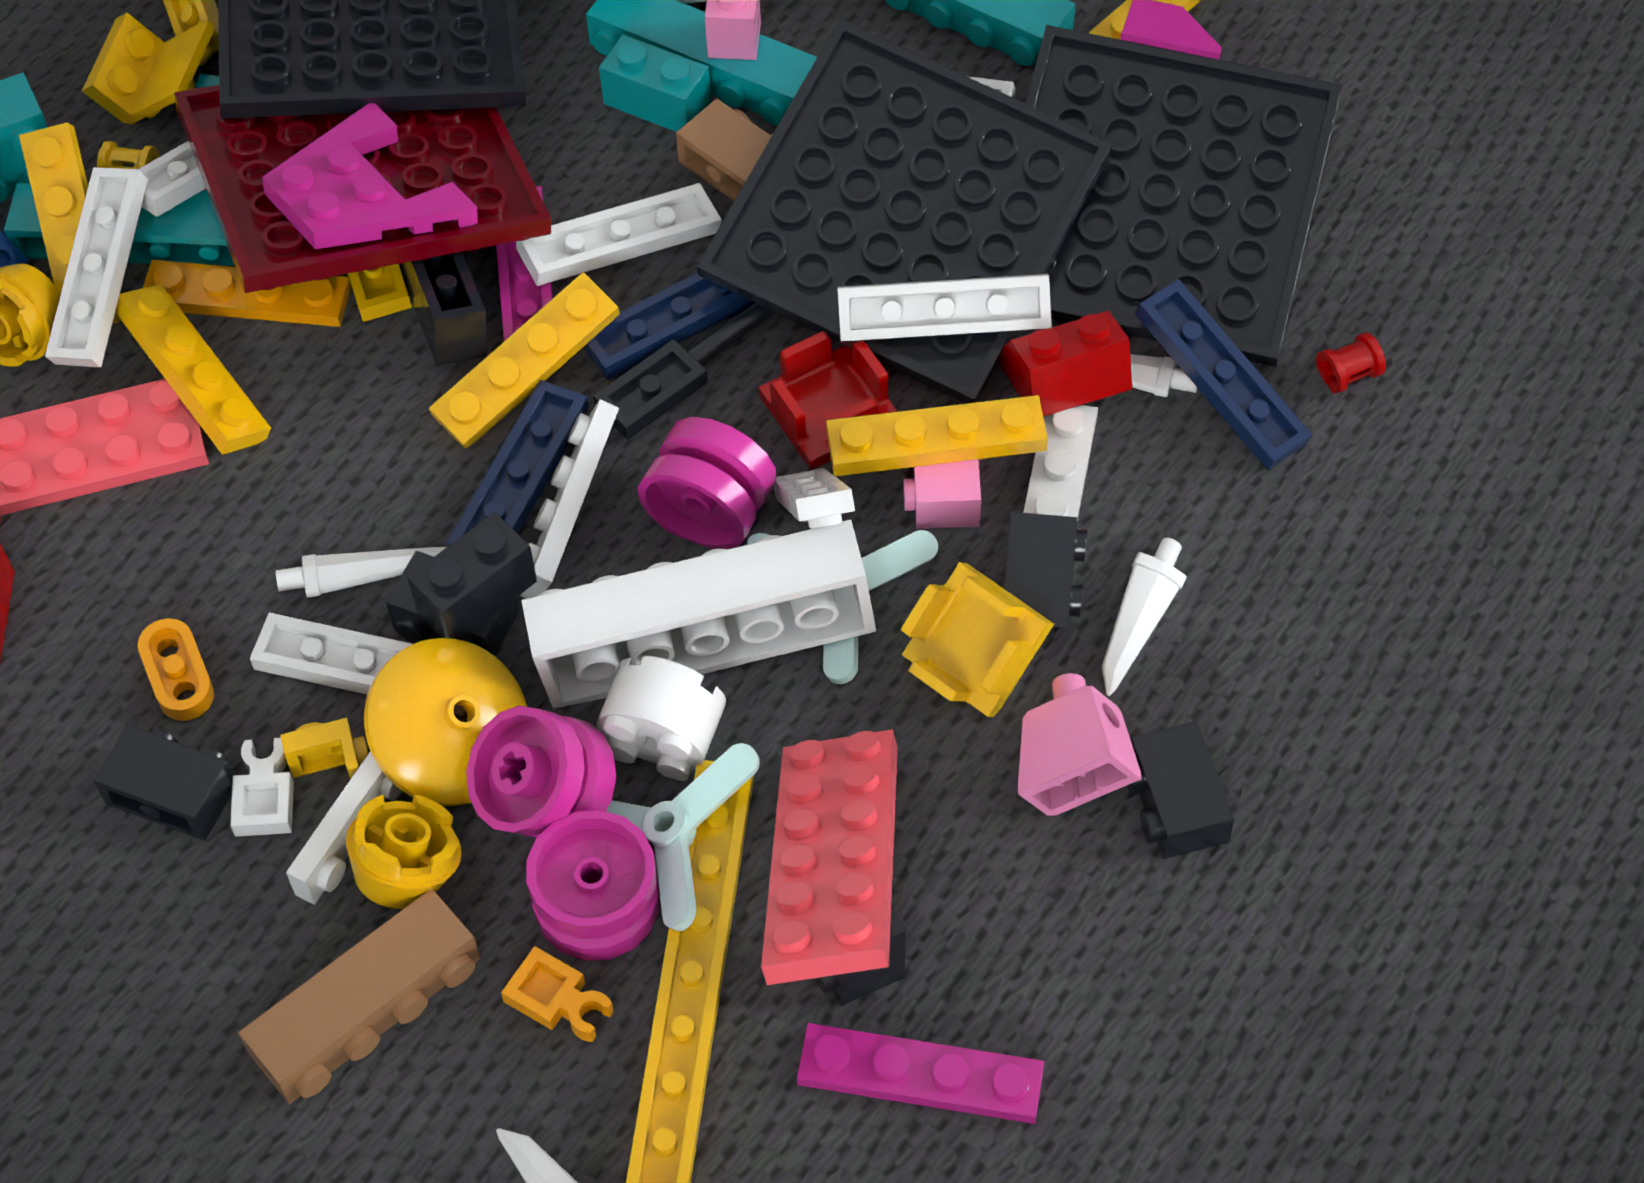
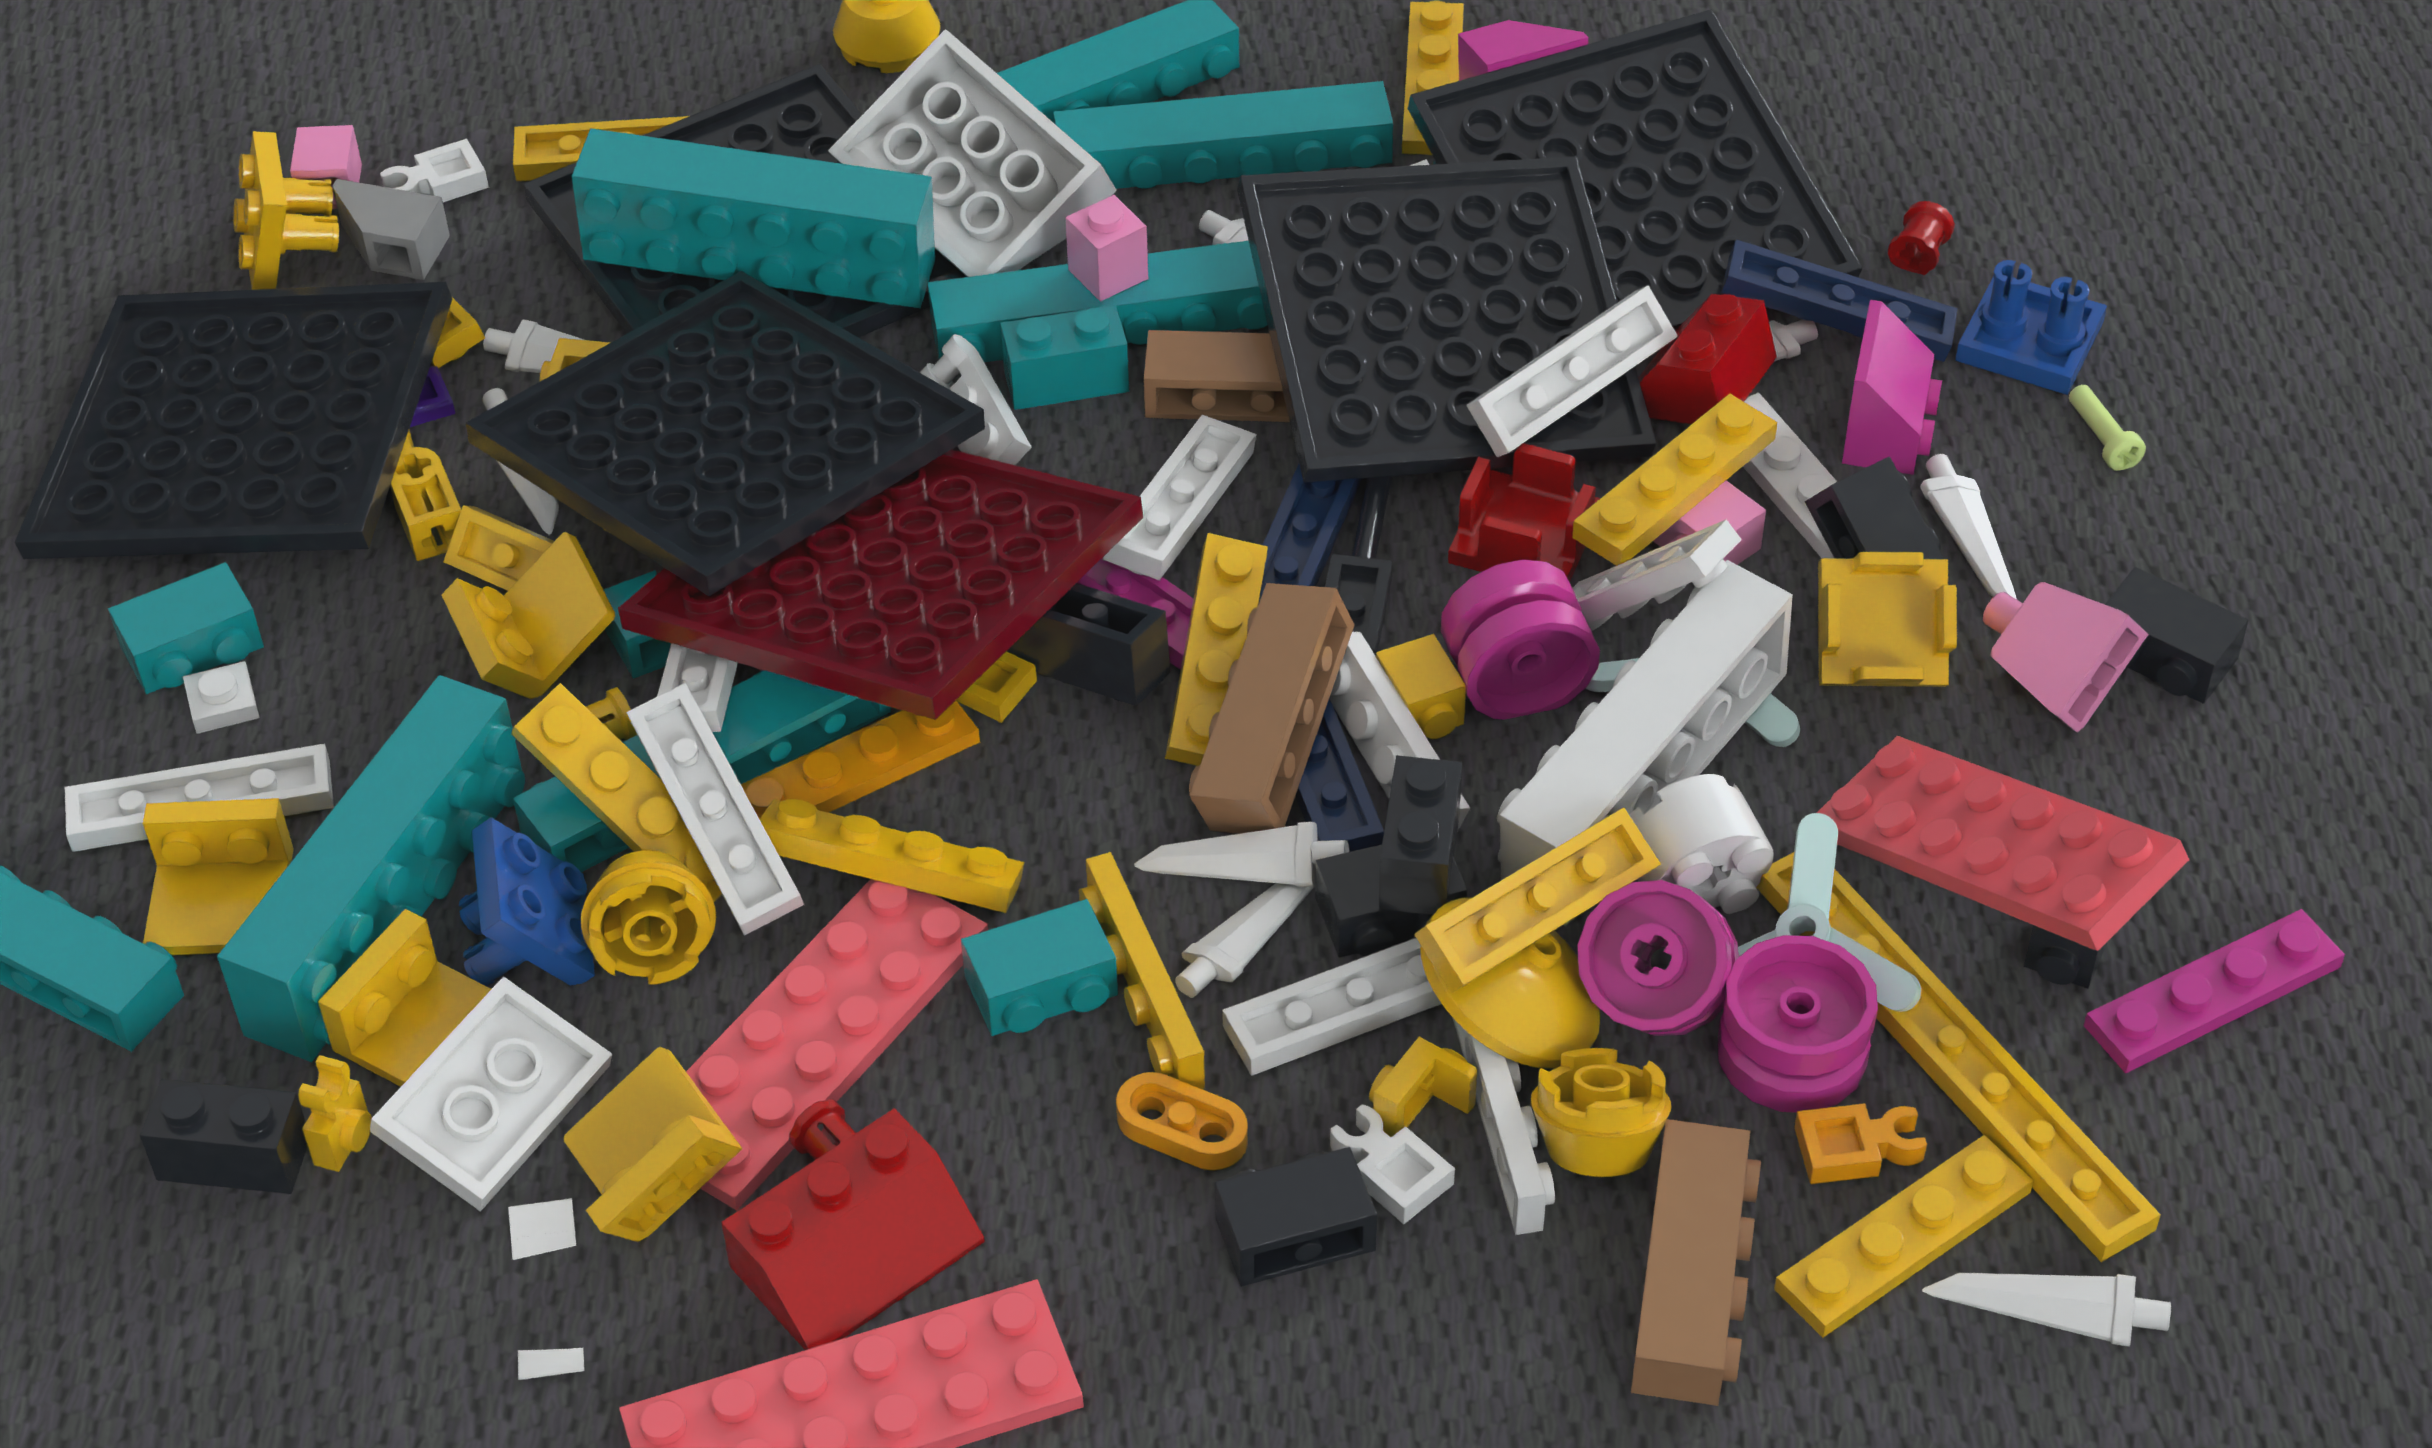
camera: 40 degrees left, 10 degrees down
(198, 506) = (1040, 968): none -> teal brick
(258, 542) = (1149, 993): none -> yellow plate
(344, 200) = (936, 587): dark pink wing -> none
(400, 519) = (1268, 855): none -> white bar
(472, 677) = (1536, 900): none -> yellow plate
(499, 425) = (1271, 709): none -> medium nougat brick
(521, 1083) = (1903, 1235): none -> yellow plate
(564, 87) = (1002, 435): none -> white plate
(619, 473) = (1426, 684): none -> yellow brick
(1172, 467) = (1891, 395): none -> dark pink slope
(1318, 623) = (2121, 447): none -> yellowish green piece
(1351, 487) = (2032, 329): none -> blue plate

